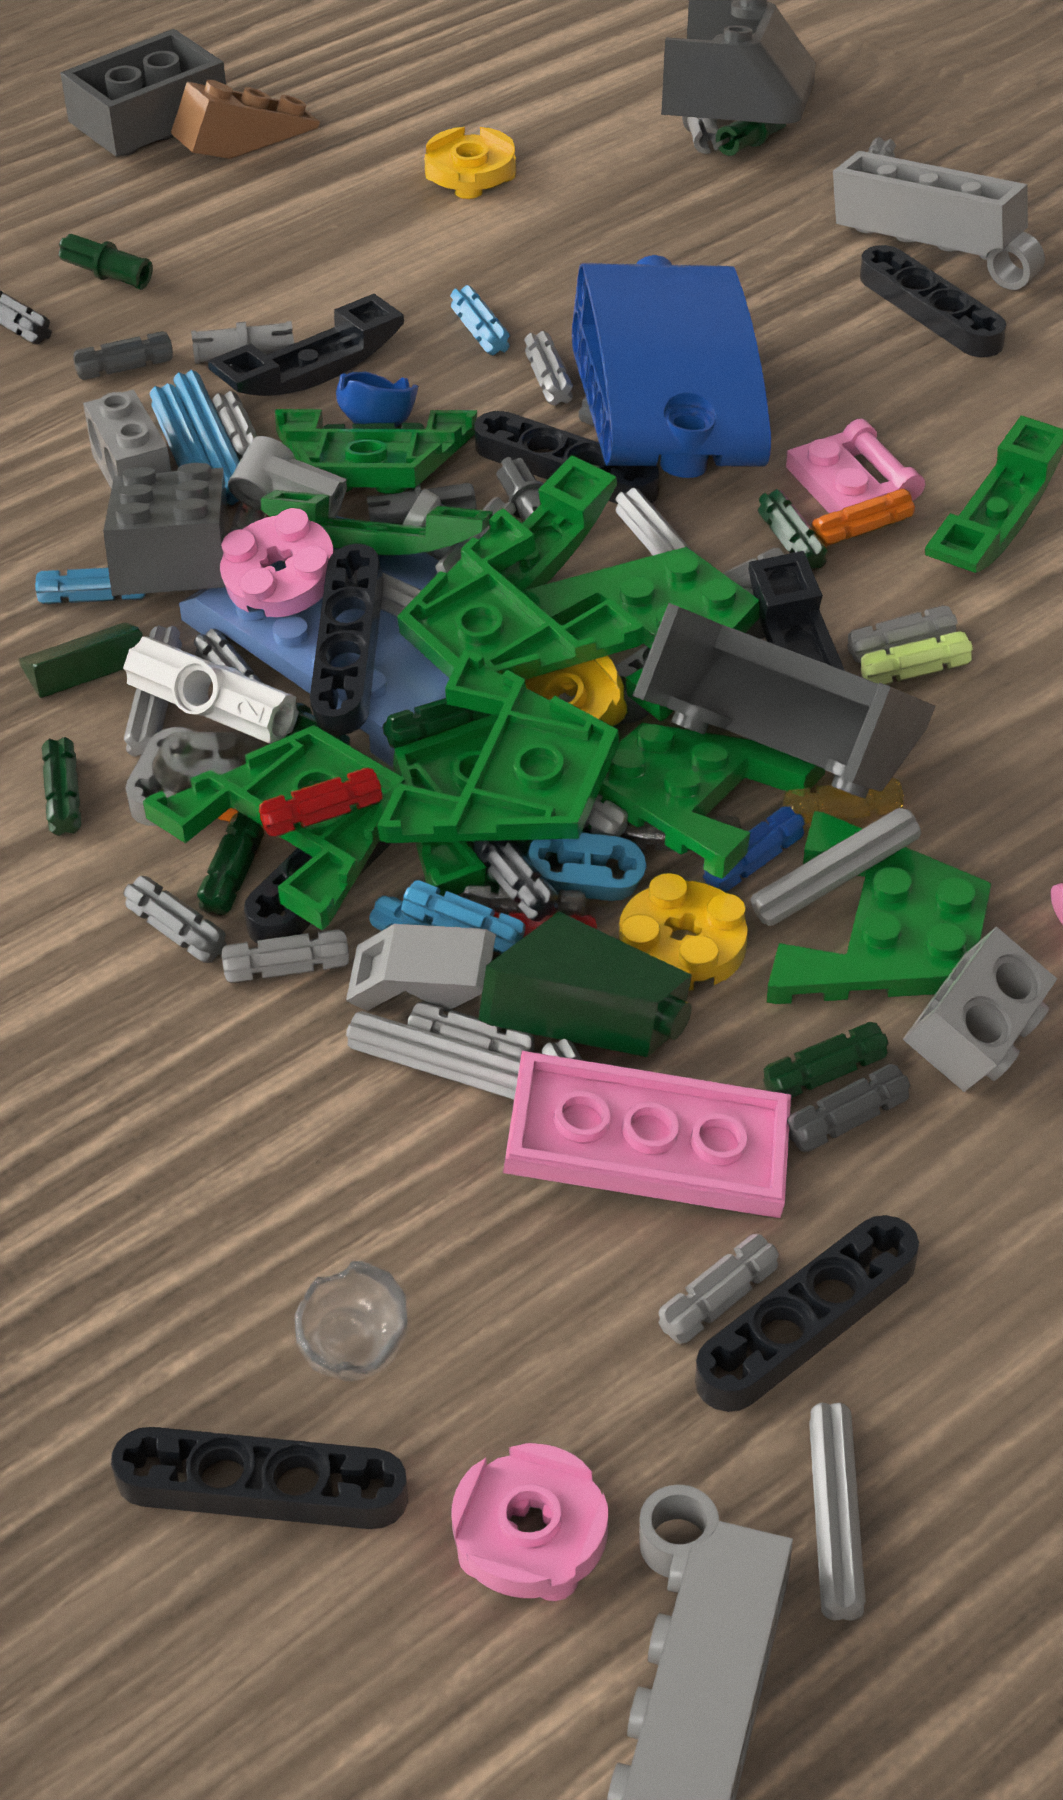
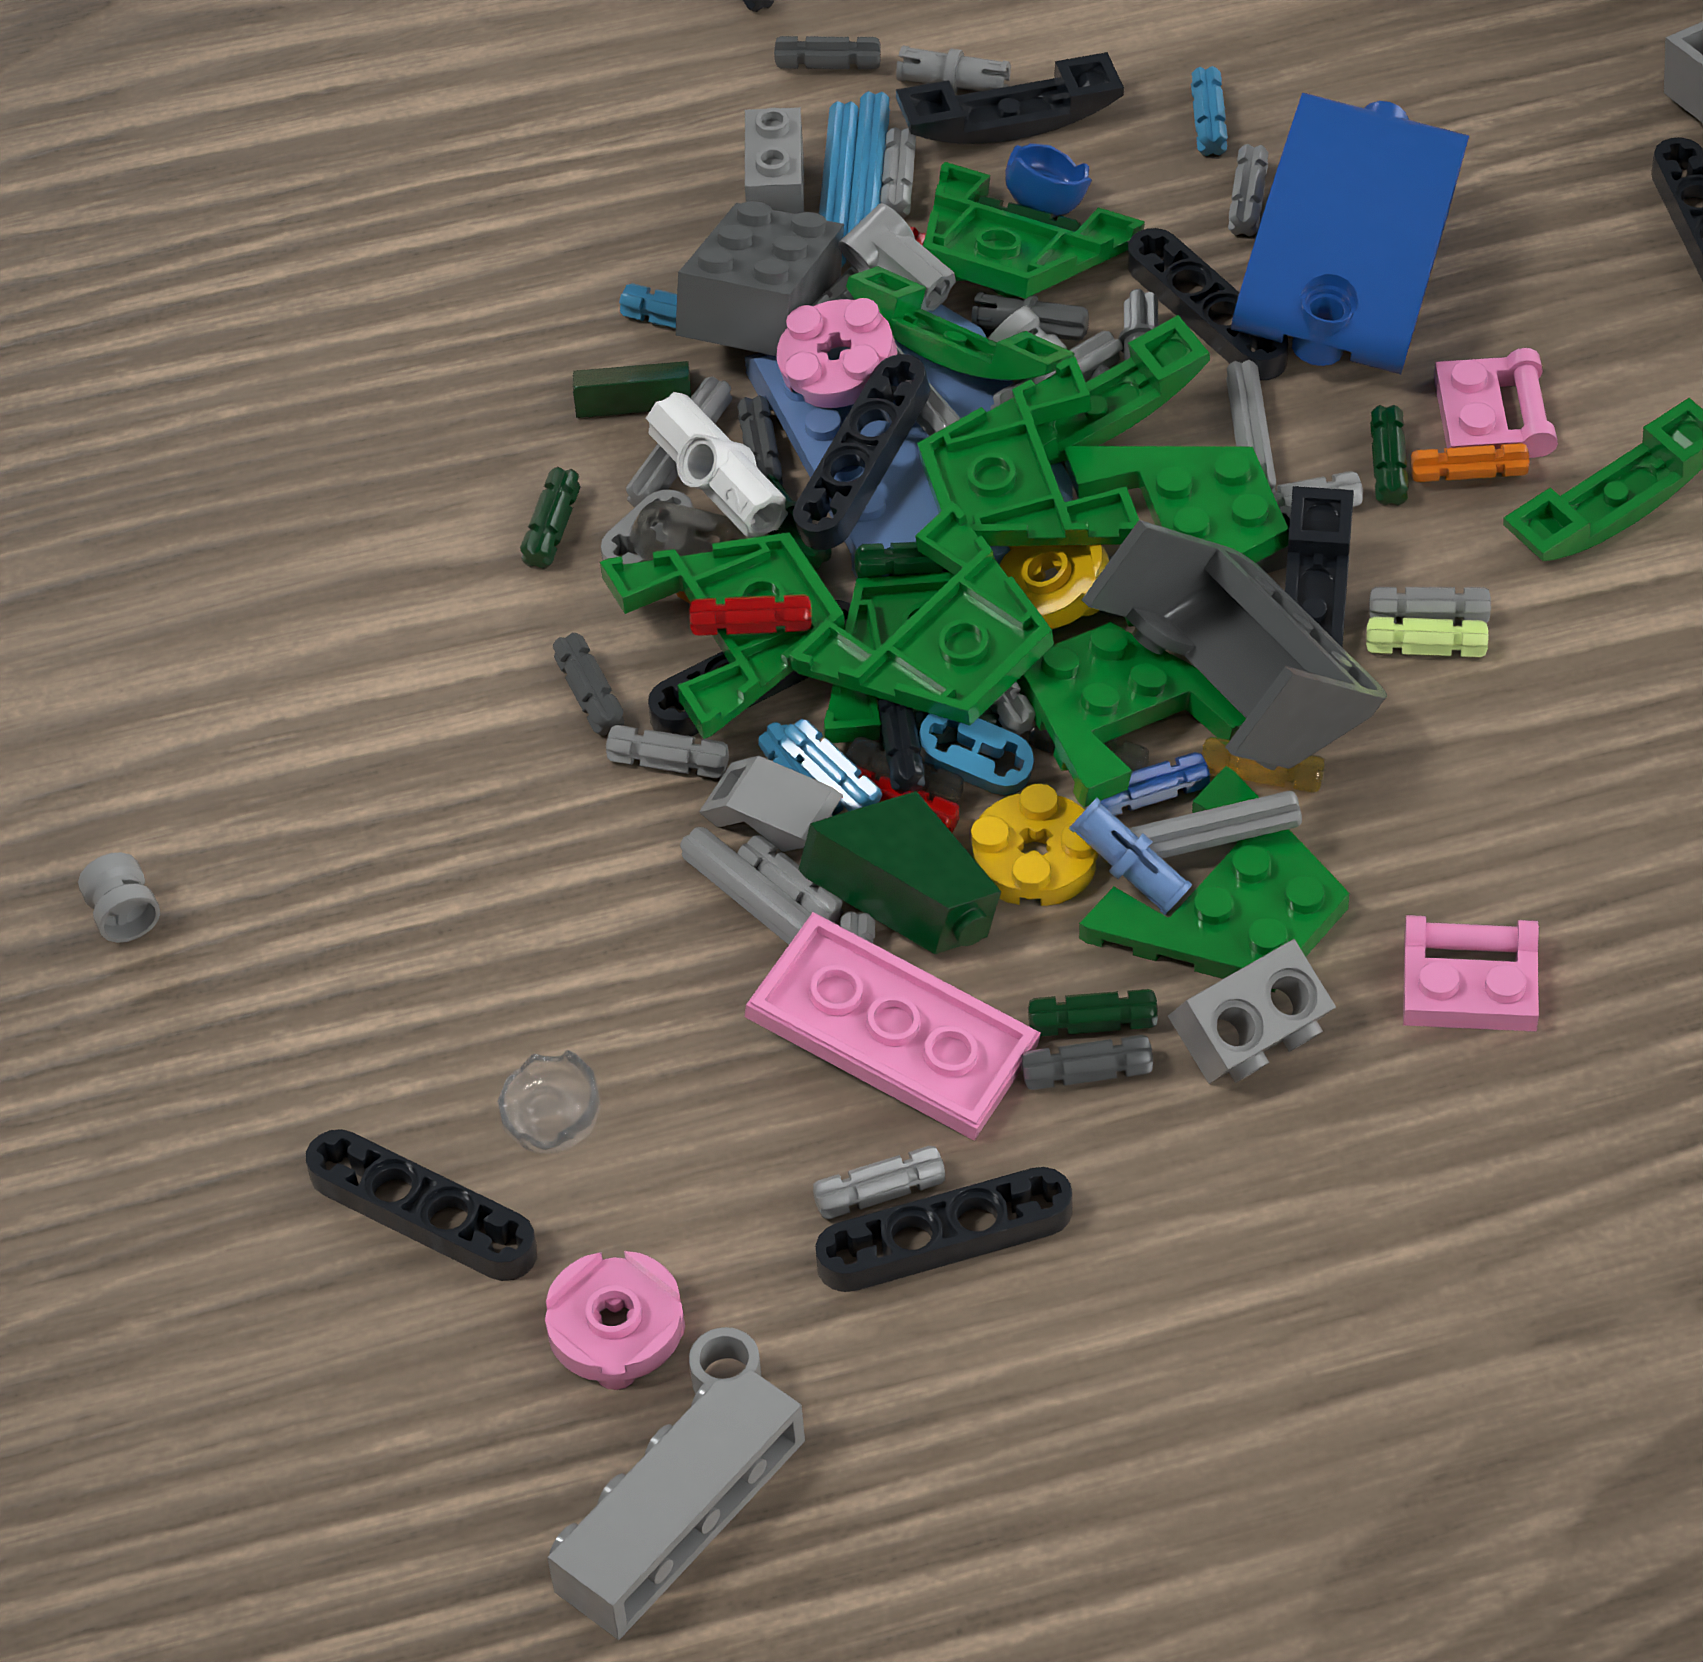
camera: 25 degrees right, 5 degrees up
(230, 865) = (657, 650): dark green axle -> none
(785, 909) = (1130, 856): none -> medium blue pin
(836, 1512) = (869, 1400): light grey axle -> none

